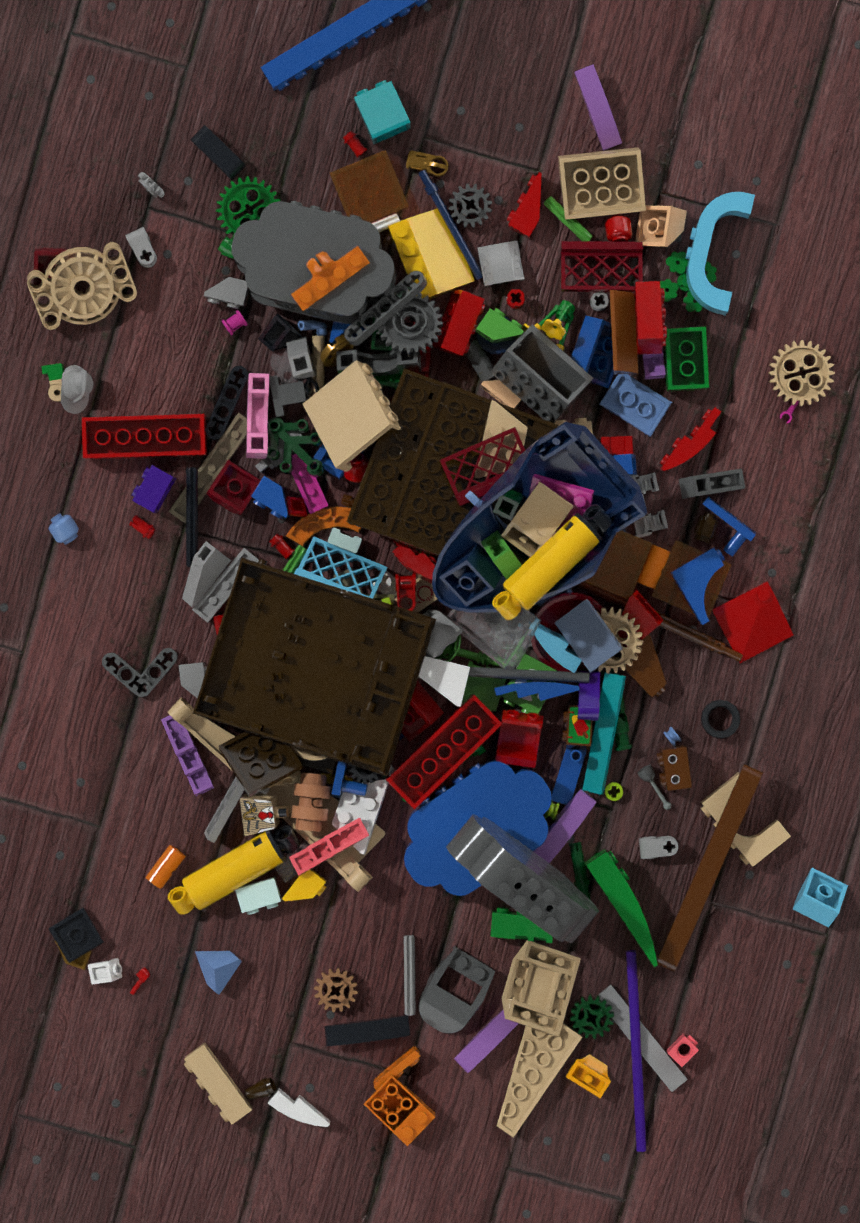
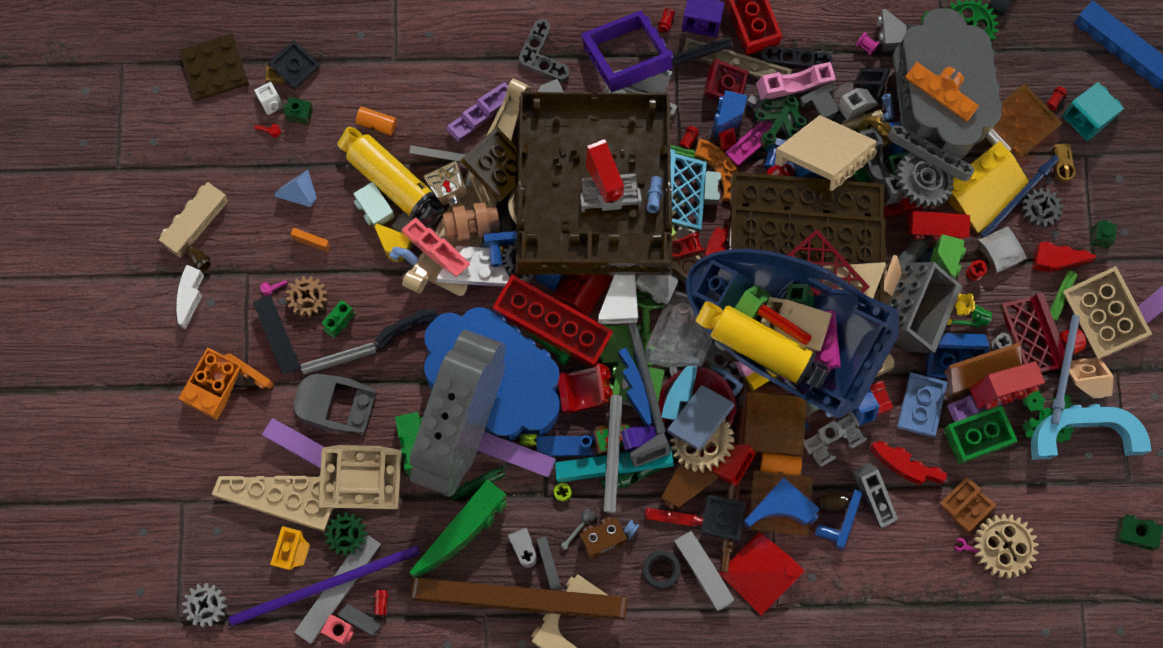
camera: 70 degrees right, 15 degrees down
(51, 1019) = (214, 67): none -> dark brown plate
(129, 945) = (298, 111): none -> dark green brick
(203, 578) = (637, 72): none -> dark purple window
(276, 969) = (311, 240): none -> orange tile
(314, 655) = (604, 171): none -> red slope
(314, 1027) = (267, 290): none -> dark pink hand
(324, 879) = (405, 253): none -> medium blue arm
(333, 673) = (594, 200): none -> light grey piece
(348, 609) = (654, 194): none -> medium blue pin
(369, 963) = (338, 319): none -> green piece
(397, 899) = (418, 318): none -> black piece
(517, 153) = (1103, 234): none -> dark green brick
(537, 533) = (784, 324): none -> red axle
(596, 732) = (613, 454): none -> light grey axle
(606, 694) = (651, 450): none -> dark grey slope
(613, 1178) = (201, 612): none -> light grey gear
(668, 1001) = (380, 602): none -> red pin
(672, 689) = (673, 517): none -> red piece
(679, 1025) = (360, 620): none -> dark grey slope
(682, 827) = (548, 564): none -> dark grey beam
(683, 272) = (1059, 403): none -> sand blue bar
(690, 642) = (723, 518): none -> black tile
(735, 677) = (704, 571): none -> light grey slope
(749, 394) = (968, 505): none -> dark orange slope
(837, 227) = (1127, 533): none -> dark green brick

